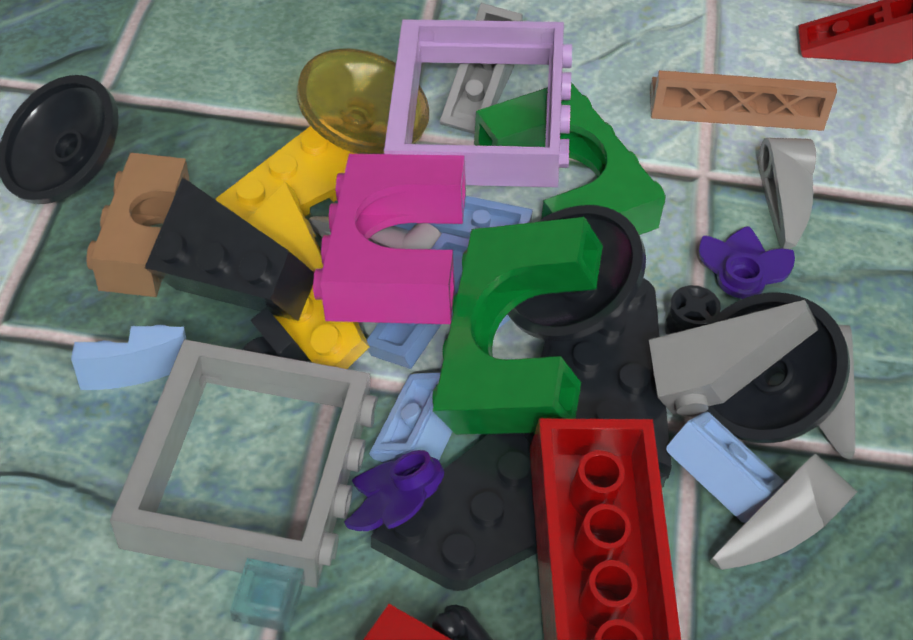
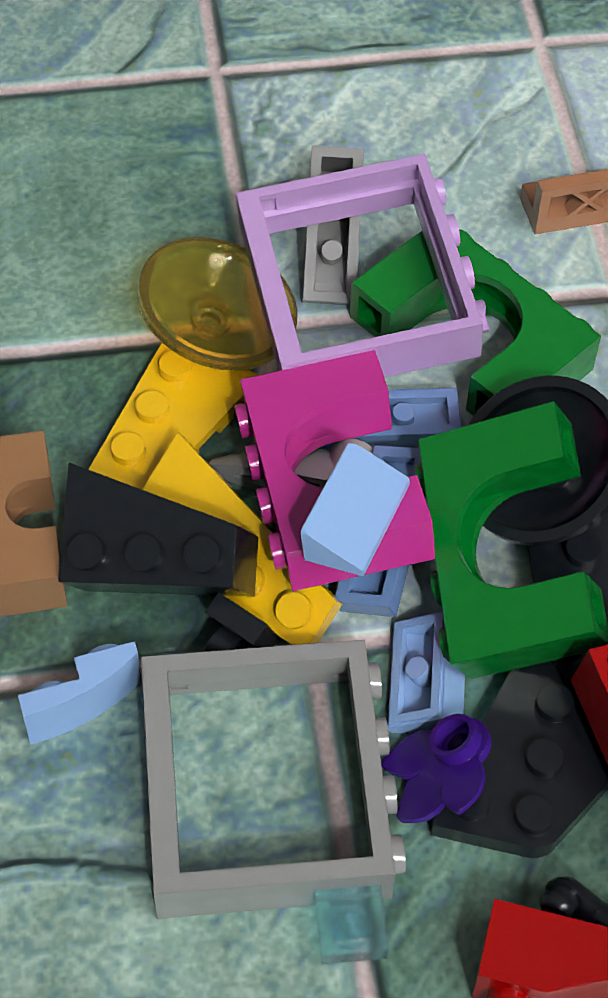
camera: 15 degrees left, 5 degrees up
(382, 259) = (353, 511): none -> light blue slope

